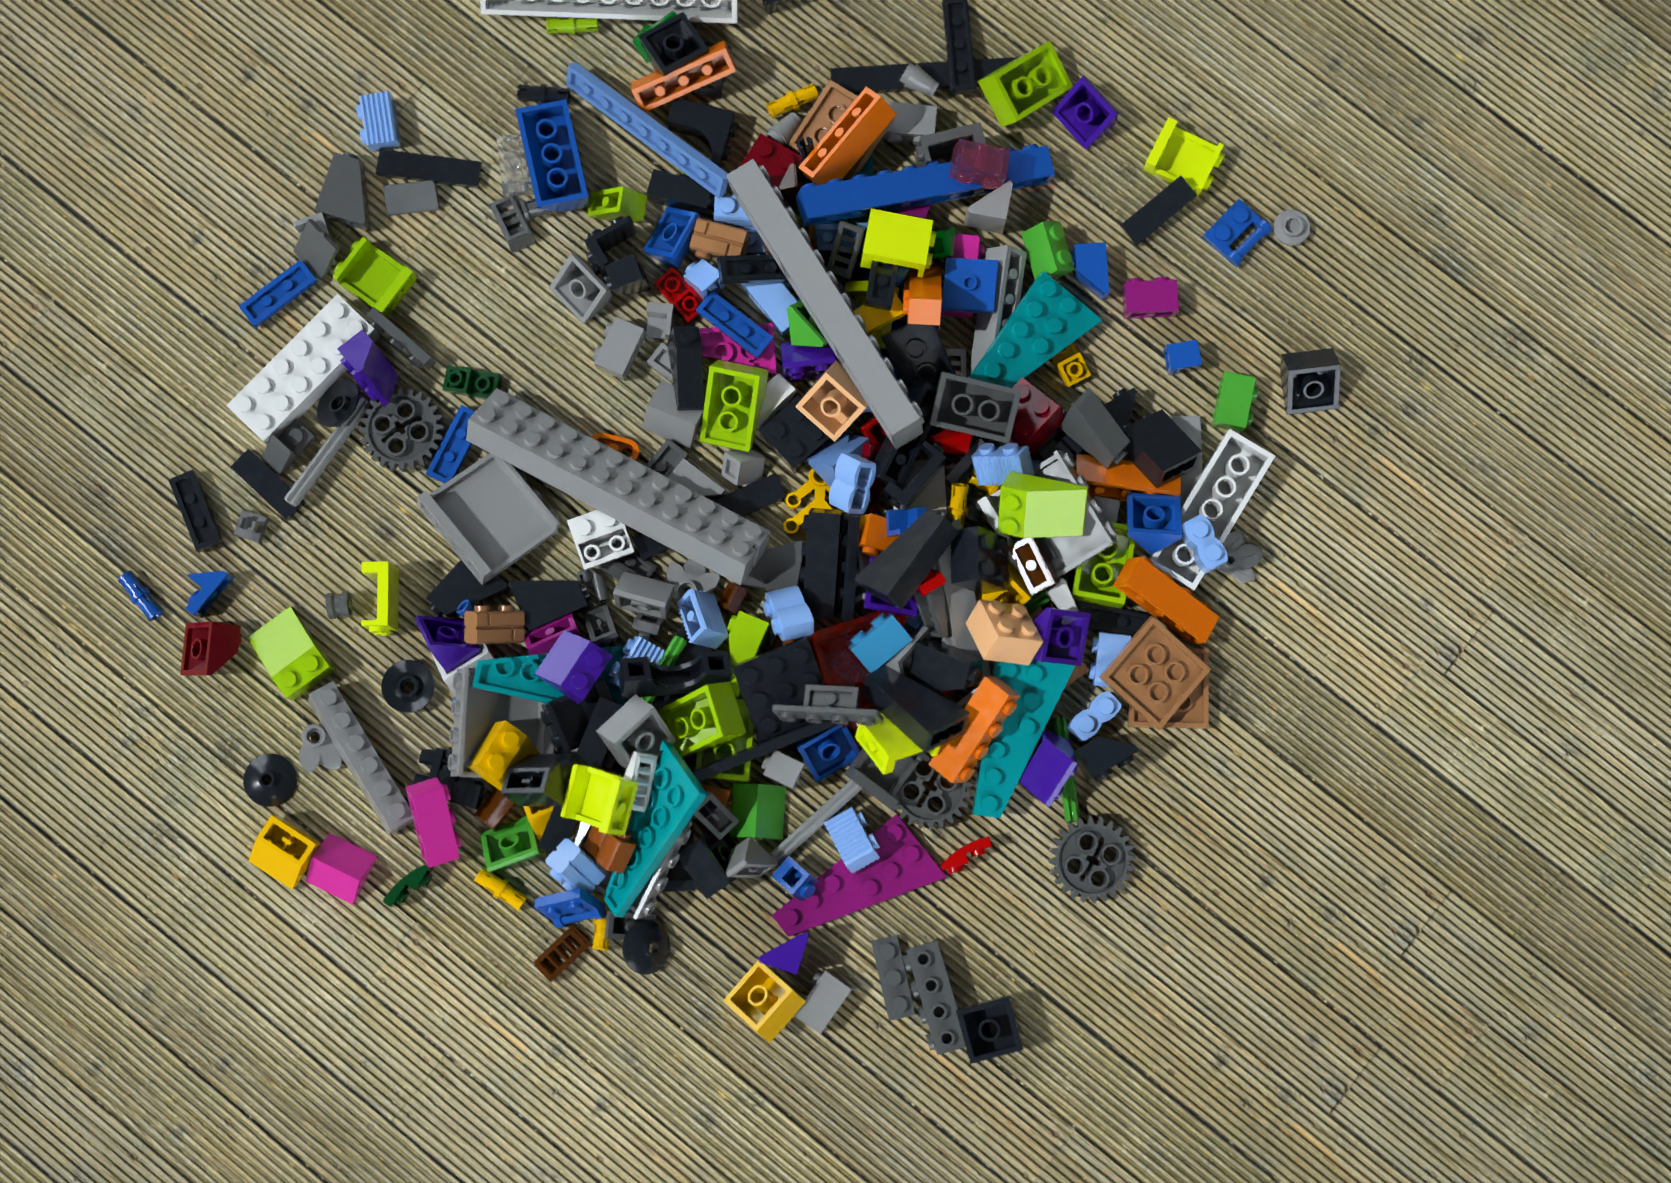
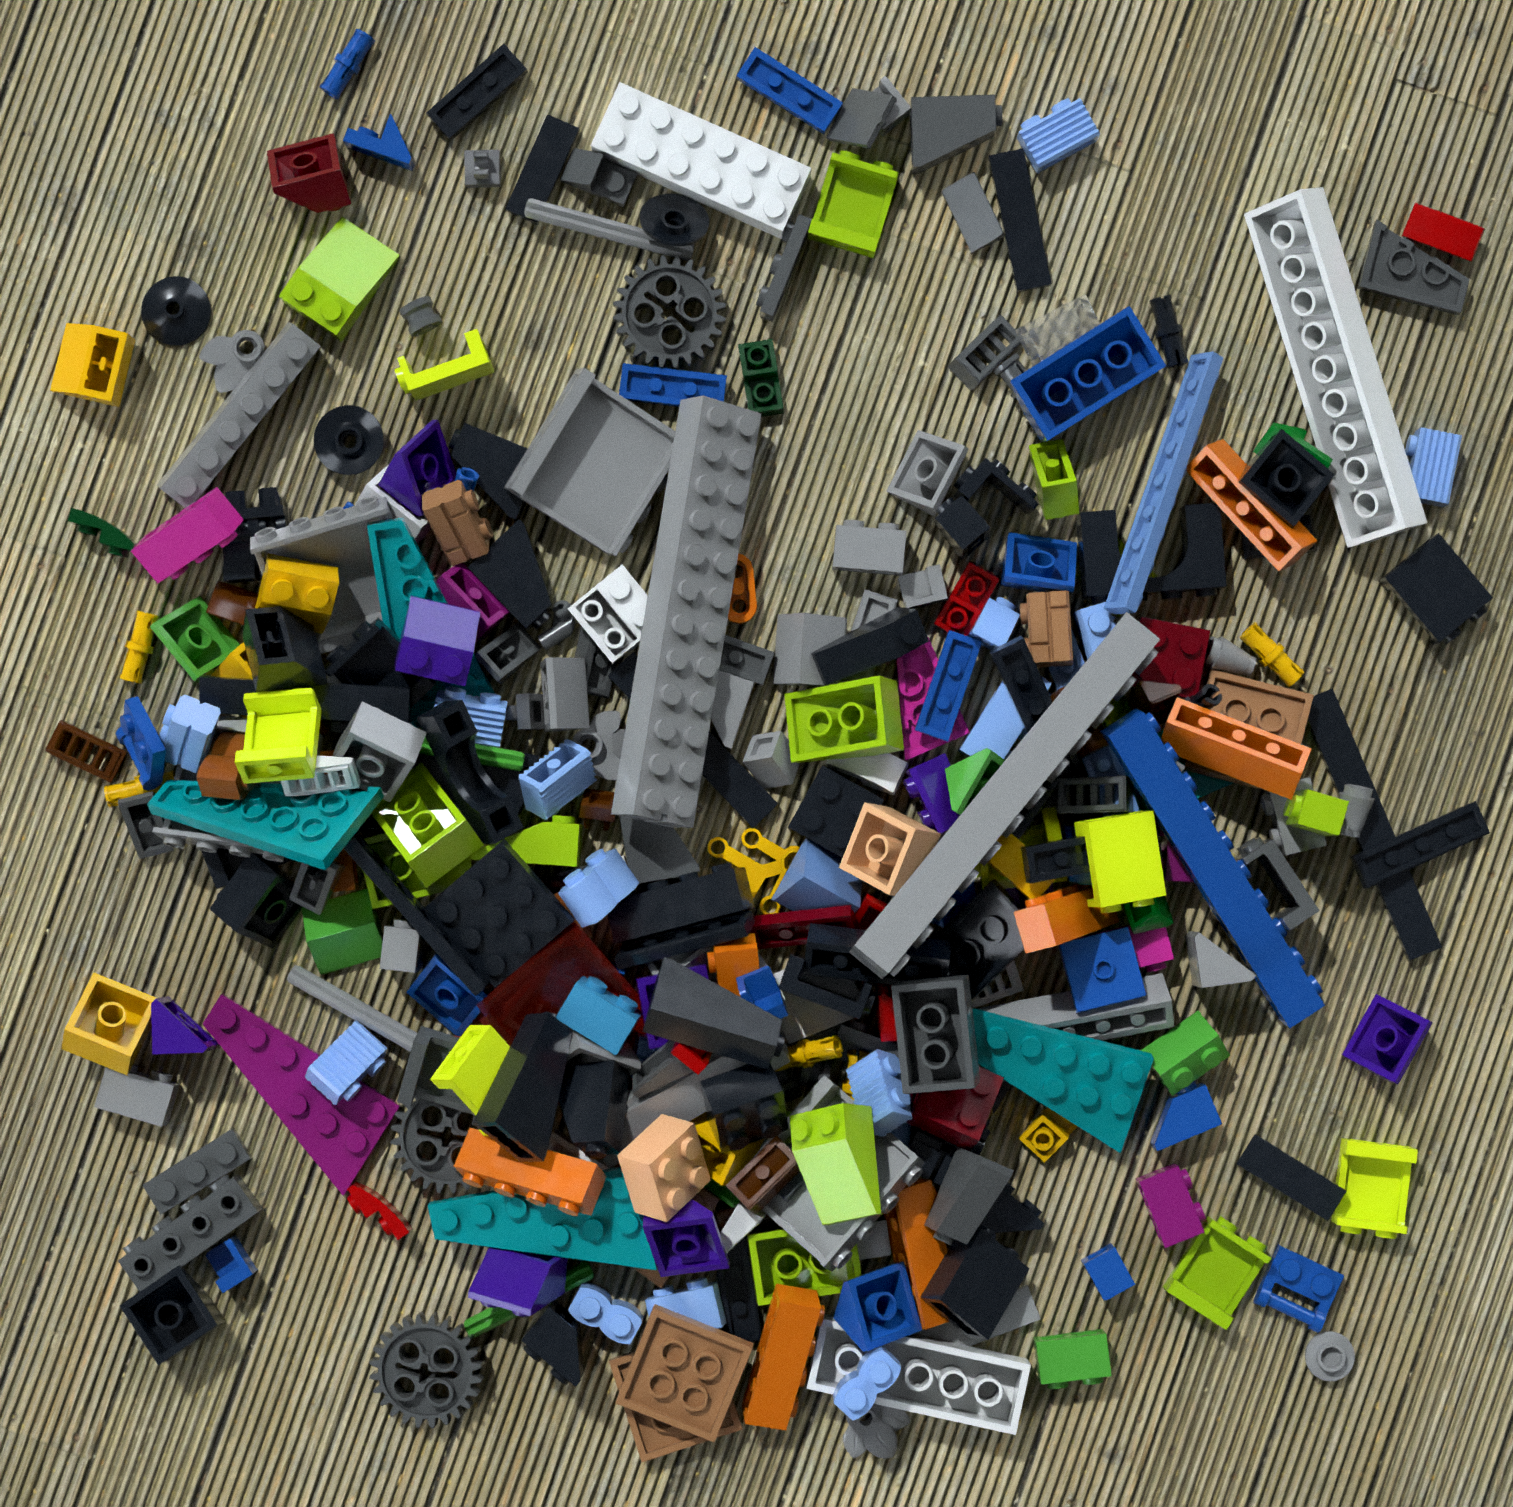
camera: 65 degrees right, 5 degrees up
(340, 868) = (98, 439): dark pink slope -> none
(369, 367) = (730, 244): dark purple slope -> none
(571, 25) = (1271, 334): lime pin -> none
(637, 944) = (128, 842): black dish -> none
(749, 860) = (277, 943): light grey slope -> none
(795, 879) = (273, 999): blue brick -> none
(829, 703) = (497, 981): dark grey bracket -> none
(852, 483) = (789, 910): light blue brick -> none
(911, 101) = (1315, 812): none -> lime brick
(967, 976) = (230, 1263): none -> blue panel
(979, 164) = (1261, 929): clear pink brick -> none
(1025, 84) = (1397, 949): lime slope -> none
(1206, 283) = (1217, 1271): none -> lime panel
(1310, 381) = (1134, 1446): black slope -> none

